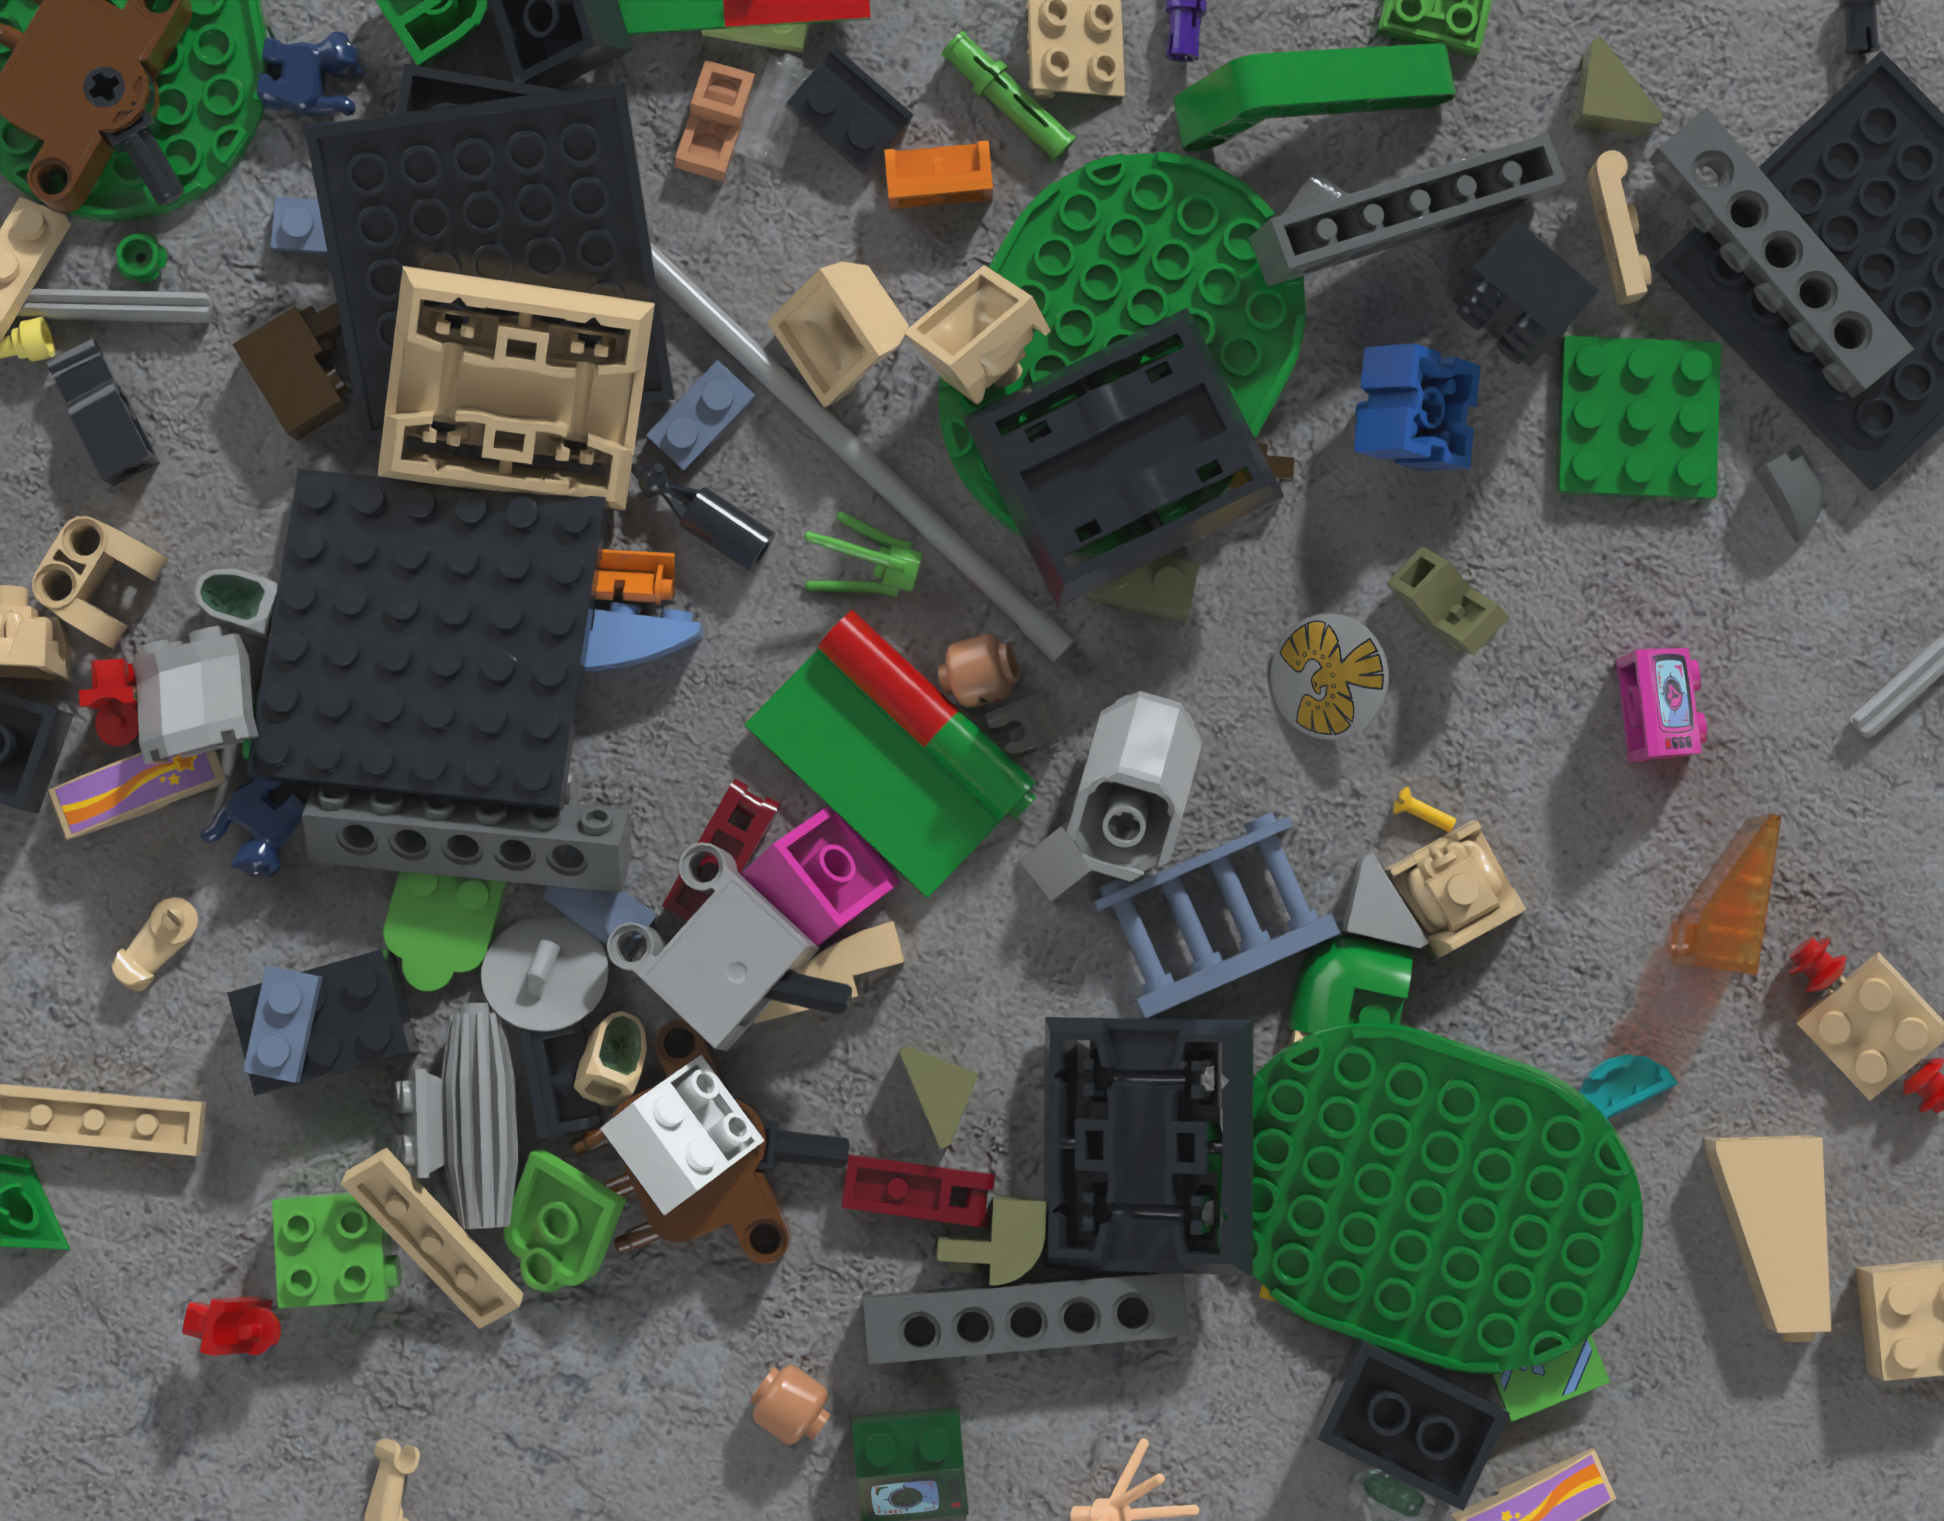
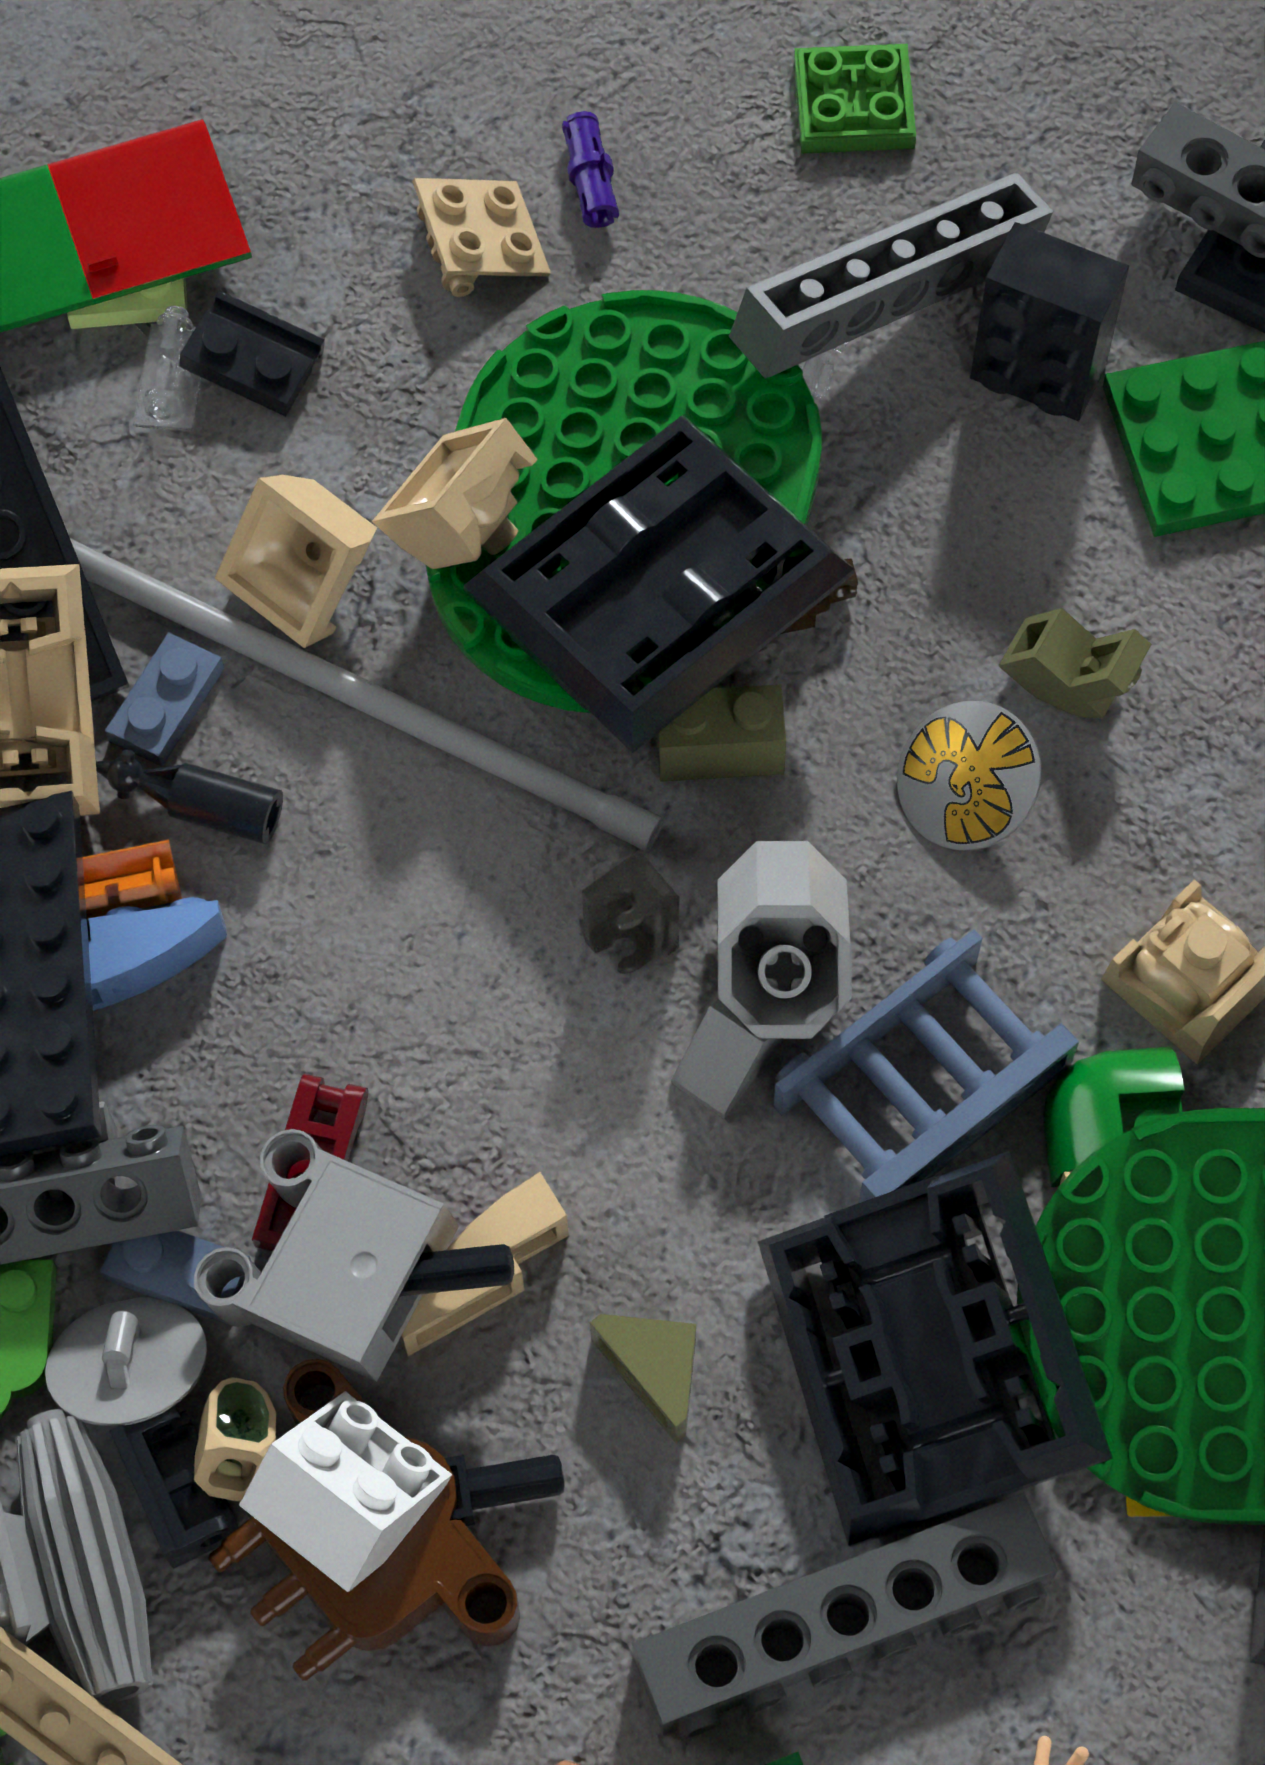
camera: 15 degrees left, 20 degrees down
(560, 1223) = (218, 1663): bright green plate -> none
(714, 120) = (105, 401): nougat slope -> none
(821, 875) = (442, 1147): dark pink slope -> none
(891, 754) = (486, 997): green door -> none
(895, 564) = (430, 792): bright green plant -> none
(916, 1190) = (661, 1498): dark red plate -> none
(939, 175) = (371, 394): orange hinge -> none
(979, 670) = (557, 873): nougat head -> none
(1007, 95) = (405, 289): bright green pin -> none
(1013, 1244) = (800, 1531): olive brick -> none
(1310, 85) = (742, 182): green beam -> none
(1377, 908) = (1115, 1011): light grey slope -> none
(1416, 407) = (970, 468): blue brick -> none
(1422, 810) = (1125, 897): yellow piece -> none
(1610, 95) = (1072, 140): olive slope -> none
(1617, 227) = (1098, 226): tan plate -> none

